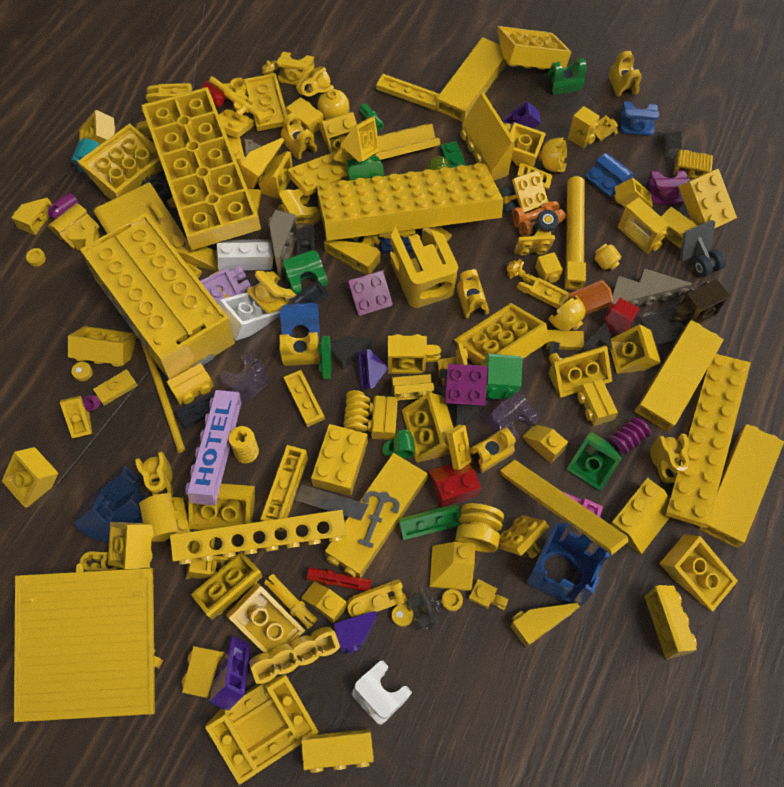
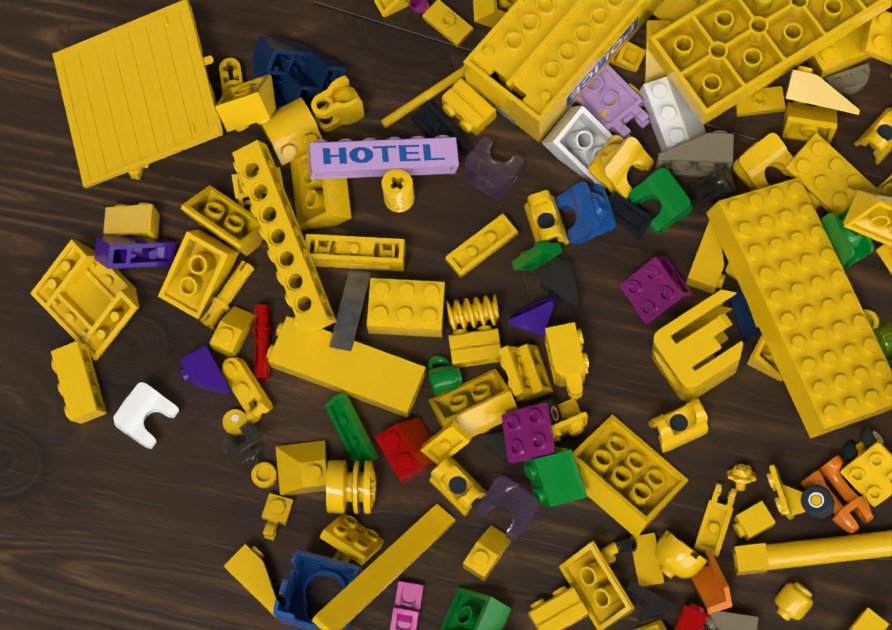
camera: 85 degrees right, 10 degrees up
(288, 656) = (163, 308): yellow brick -> none
(383, 498) = (364, 367): dark grey piece -> none

